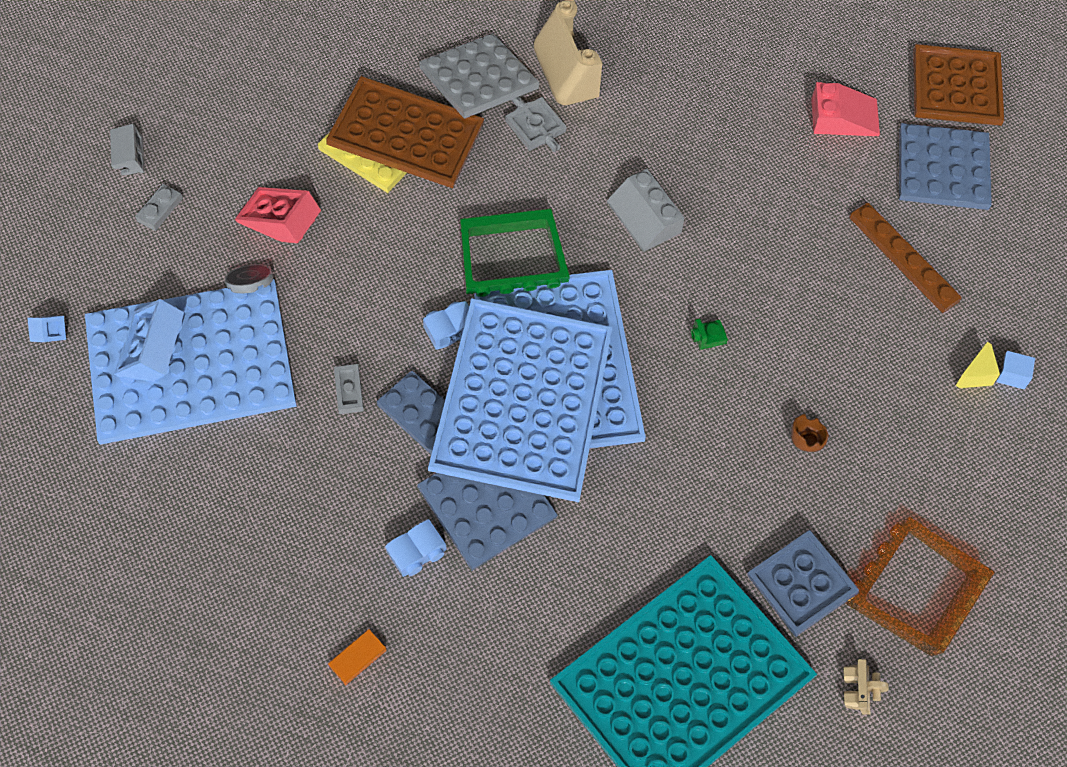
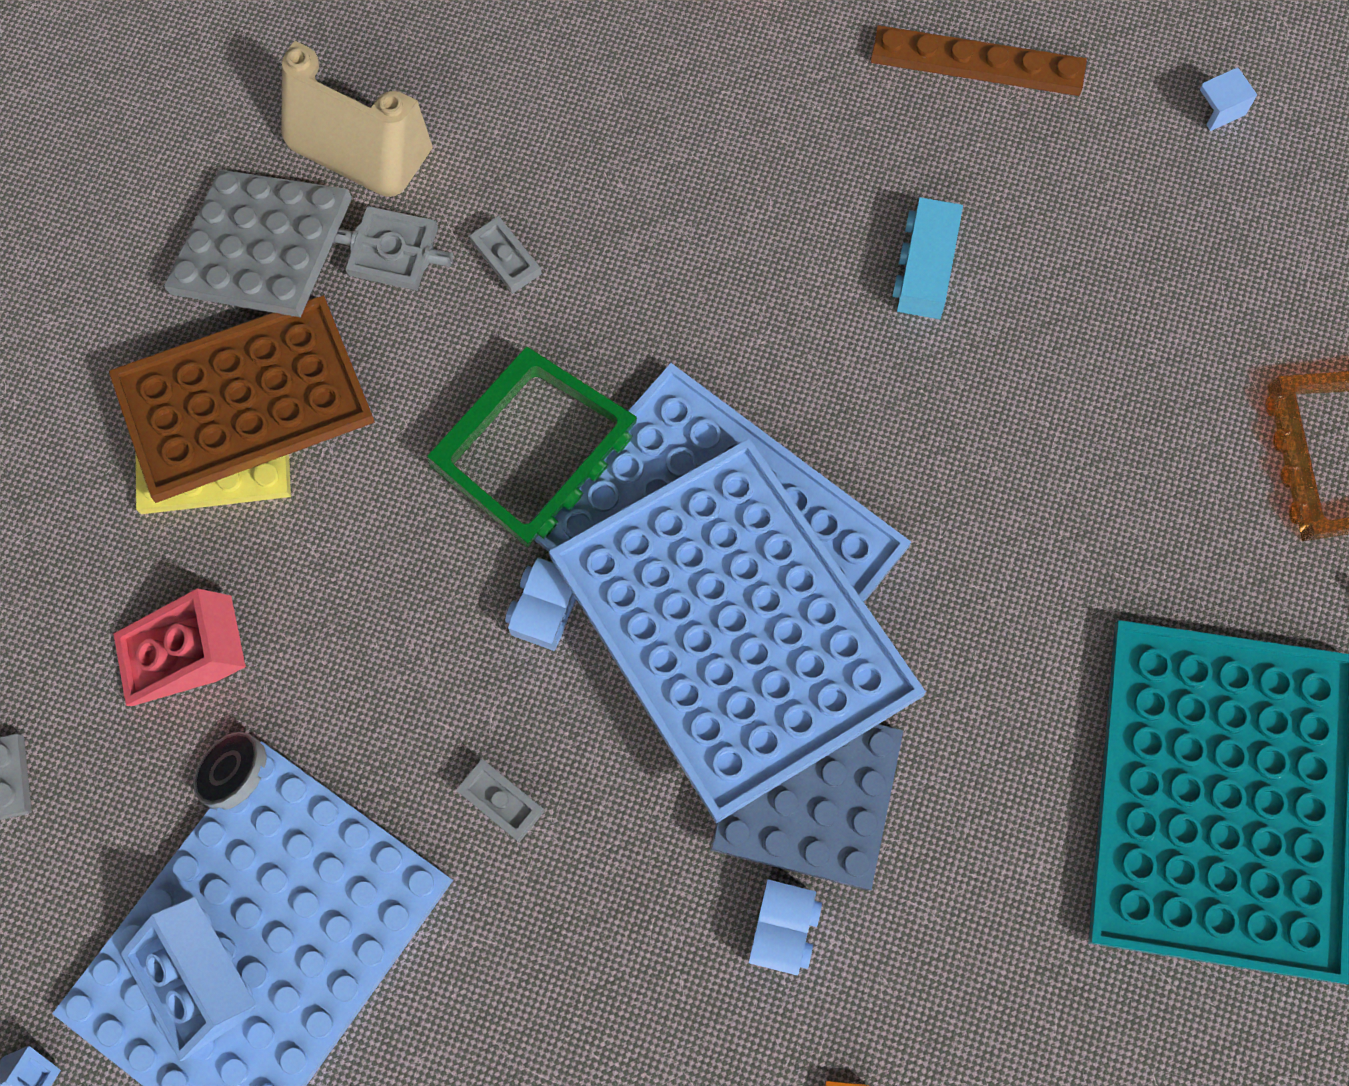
camera: 35 degrees left, 10 degrees up
(414, 409) = (612, 750): sand blue plate -> none
(584, 165) = (505, 254): none -> light grey plate
(646, 210) = (636, 250): light grey slope -> none
(708, 334) = (855, 346): green bracket -> none
(784, 323) = (928, 258): none -> medium azure brick
(802, 583) = (1246, 561): sand blue plate -> none
(809, 434) = (1084, 373): dark orange hair -> none
(982, 370) = (1186, 128): light yellow slope -> none

